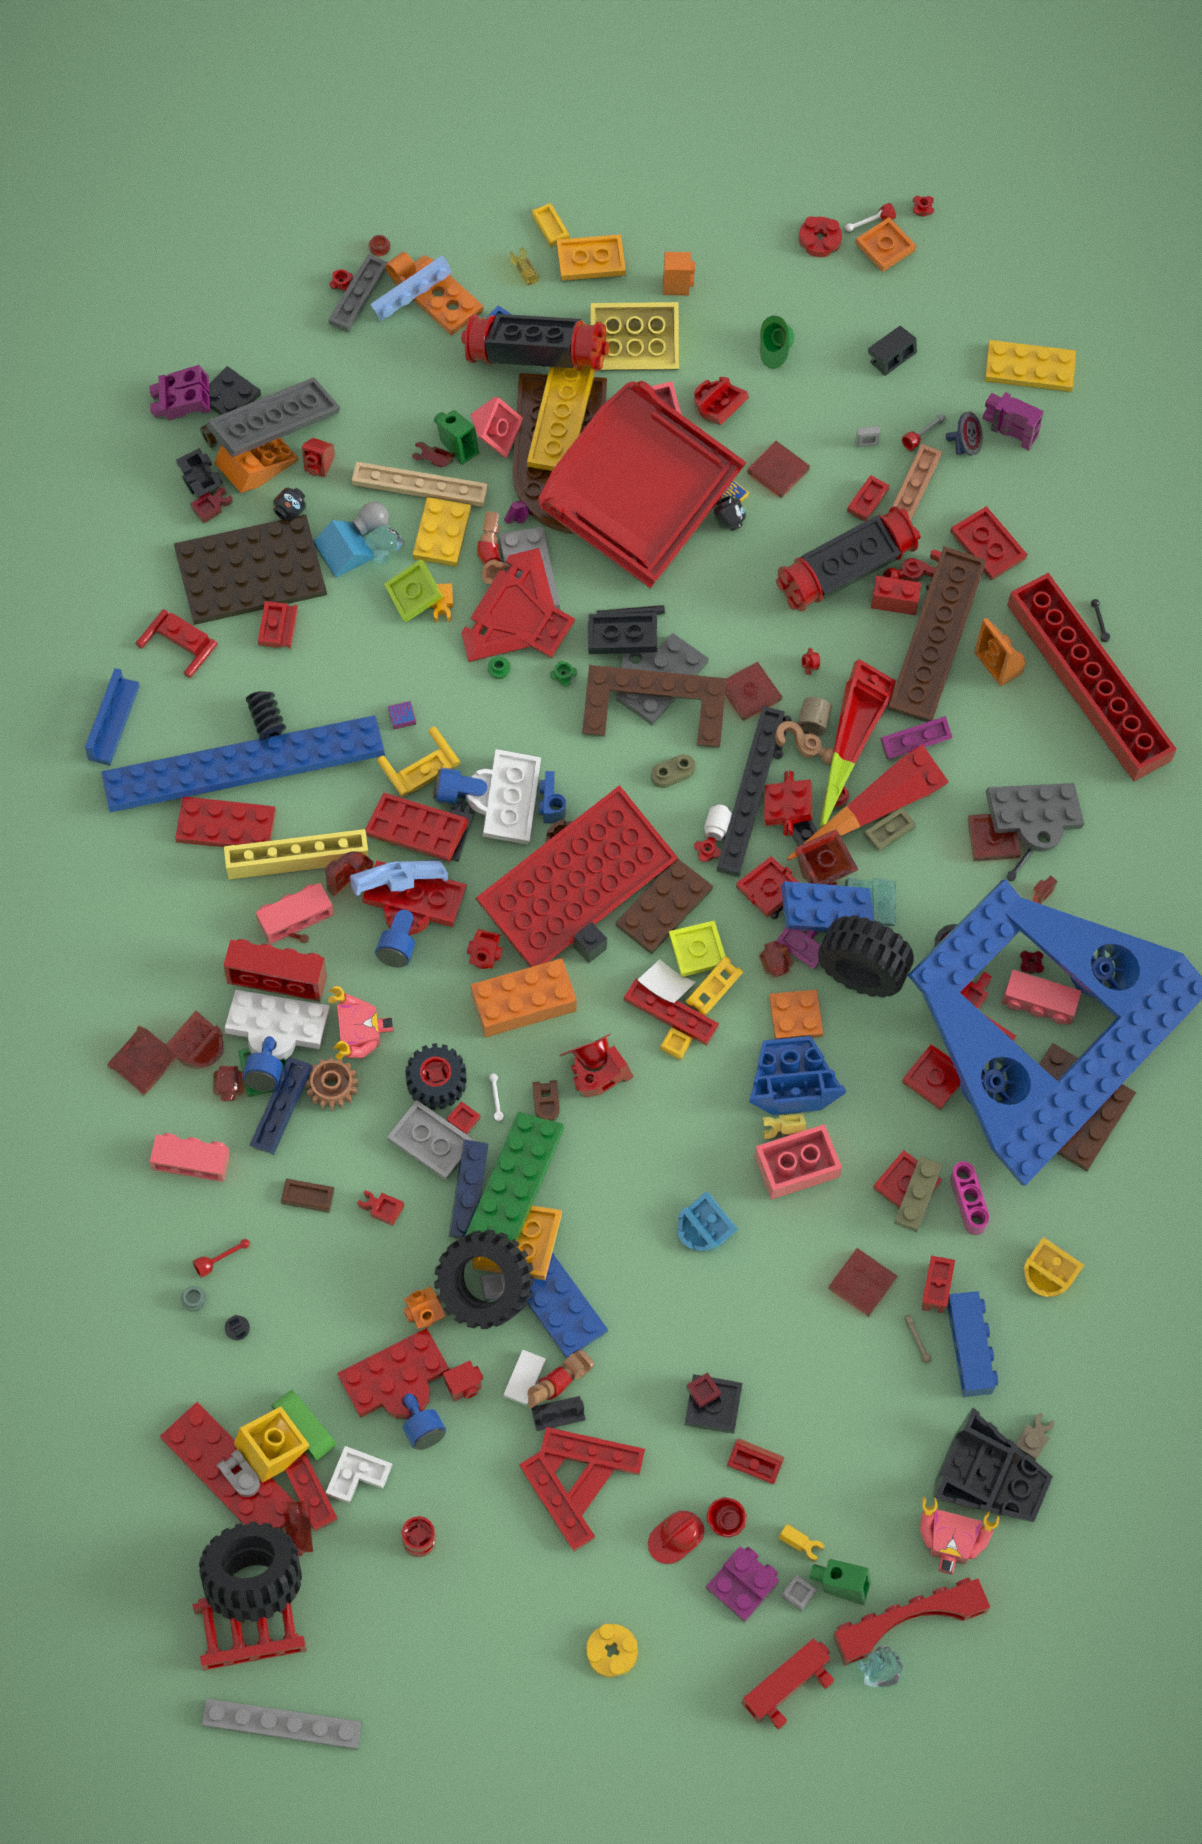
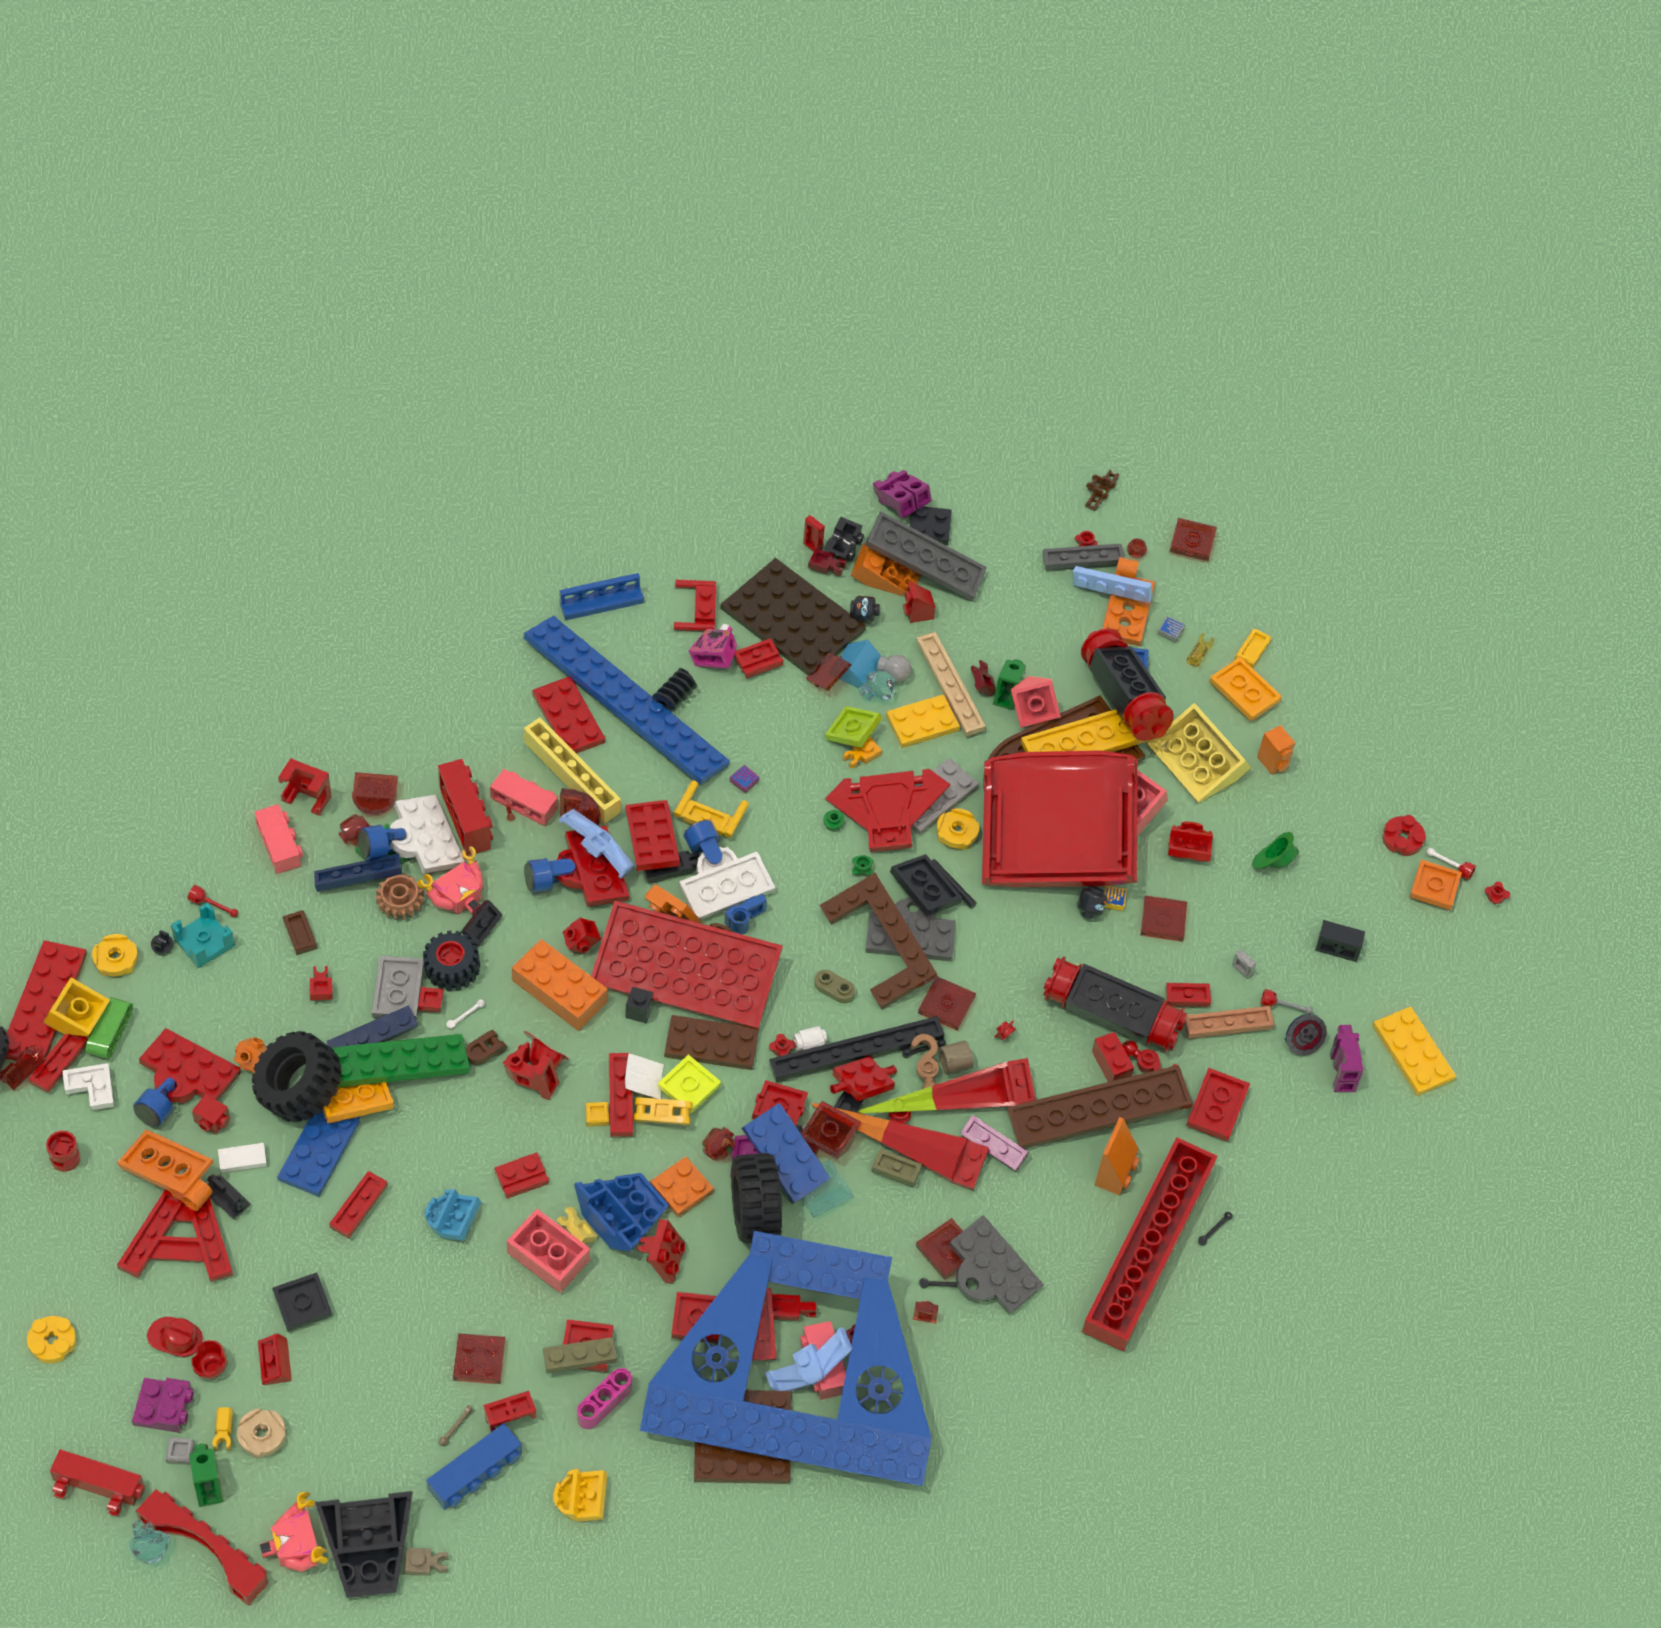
camera: 55 degrees right, 10 degrees down
(142, 1060) = (340, 765): clear red slope -> none
(149, 1092) = (308, 781): none -> red panel
(178, 494) = (813, 533): none -> red plate
(193, 1298) = (167, 903): sand green plate -> none
(218, 1364) = (115, 967): none -> yellow plate
(244, 653) = (714, 648): none -> dark pink torso
(246, 1481) = (37, 1010): light grey plate -> none
(256, 1285) = (204, 937): none -> teal panel
(285, 225) = (1098, 490): none -> reddish brown piece
(338, 574) = (828, 671): none -> clear red piece
(403, 196) = (1193, 539): none -> clear red plate
(409, 1027) = (482, 922): none -> black plate
(485, 274) = (1171, 629): none -> tile
(488, 549) = (929, 756): nougat piece -> none
(504, 857) = (666, 903): none -> orange plate
(517, 512) = (976, 759): magenta plate -> none
(537, 1442) = (183, 1186): none -> orange hinge
(559, 1379) = (252, 1180): medium nougat piece -> none
(578, 584) = (953, 838): none -> yellow plate
(642, 1300) = (358, 1204): none -> red plate
(698, 1143) = (521, 1175): none -> red plate
(703, 1390) = (304, 1283): dark red plate -> none
(816, 1521) = (262, 1419): none -> tan plate
(858, 1066) = (664, 1251): none -> red plate
(1049, 1009) = (811, 1364): none -> light blue plate

